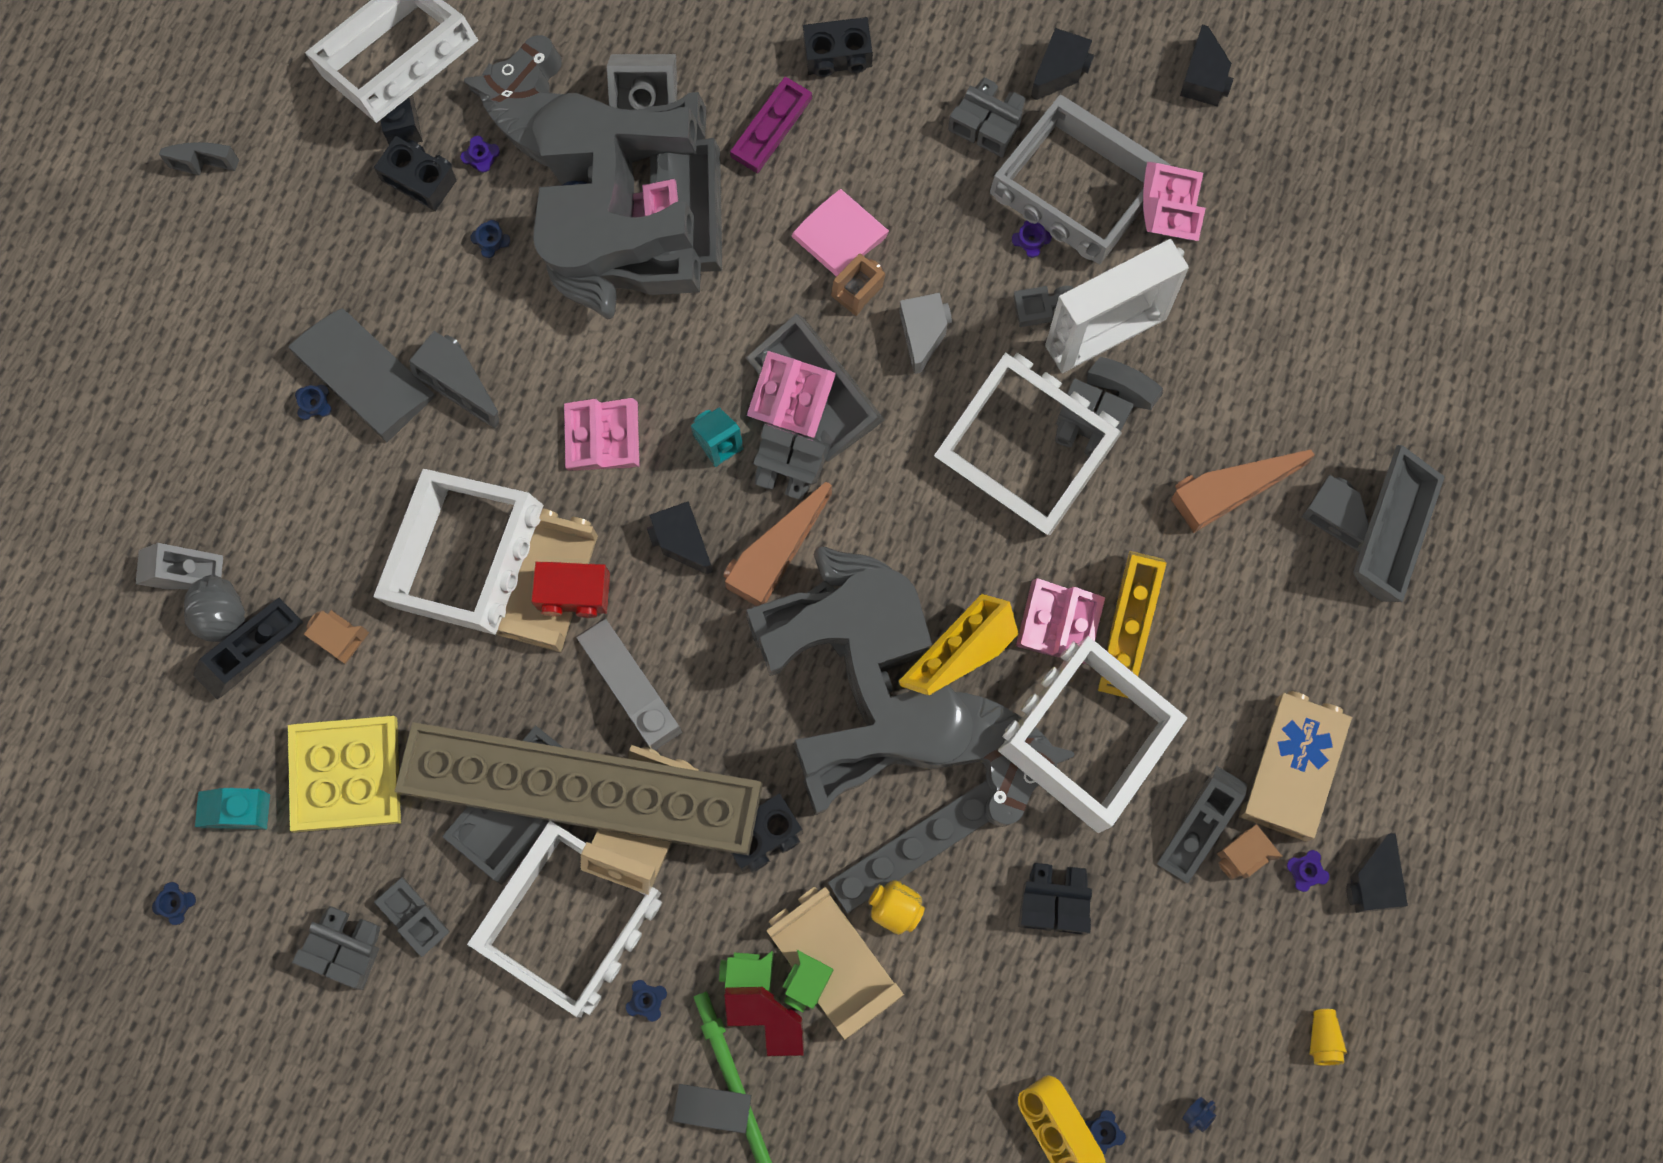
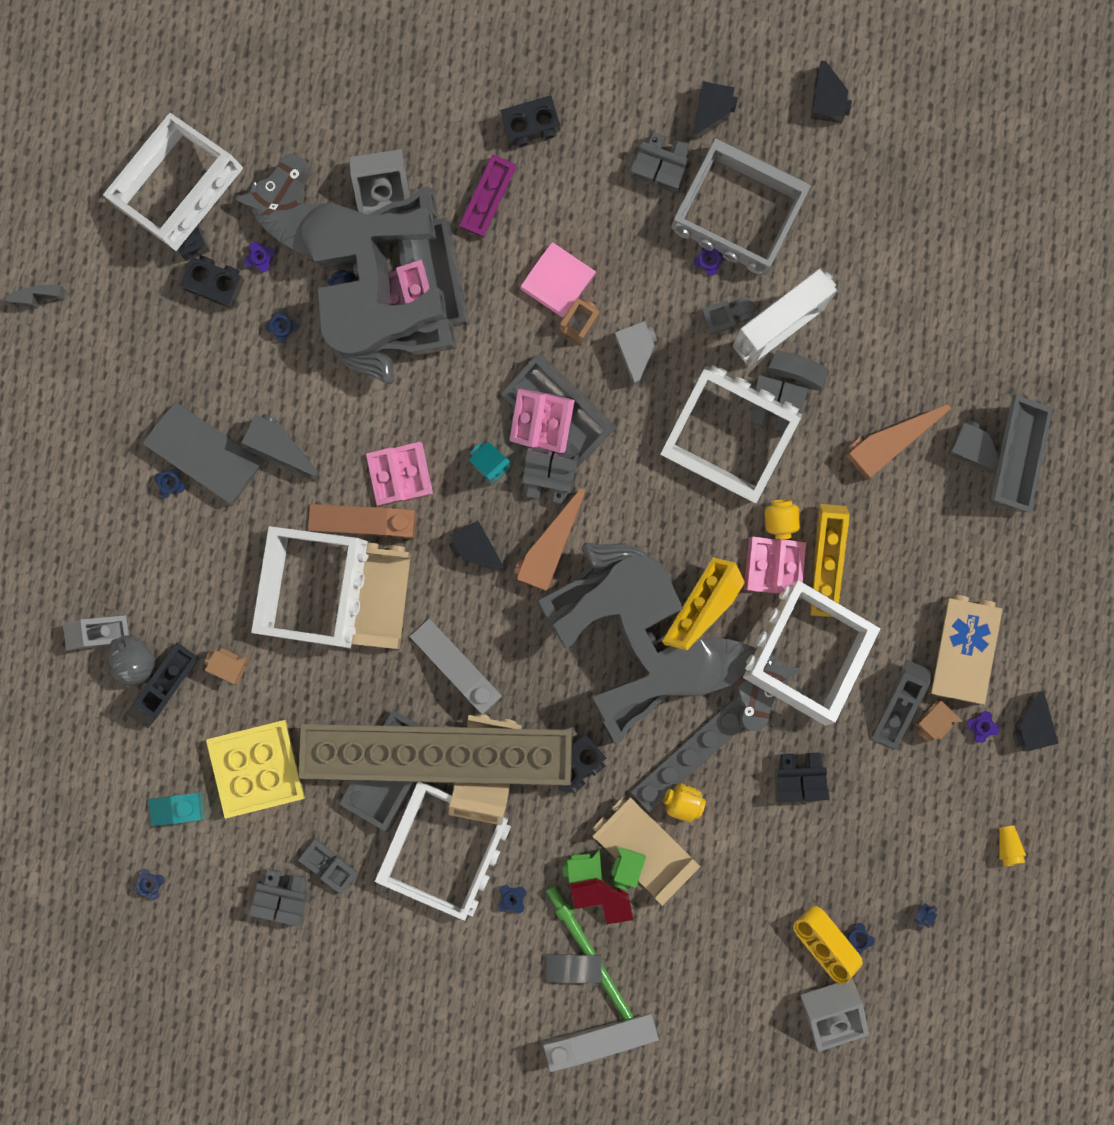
camera: 10 degrees left, 10 degrees up
(551, 483) = (363, 521): none -> nougat slope
(570, 588) = (400, 601): red brick -> none
(1078, 561) = (782, 518): none -> yellow head
(1171, 201) = (816, 215): bright pink slope -> none

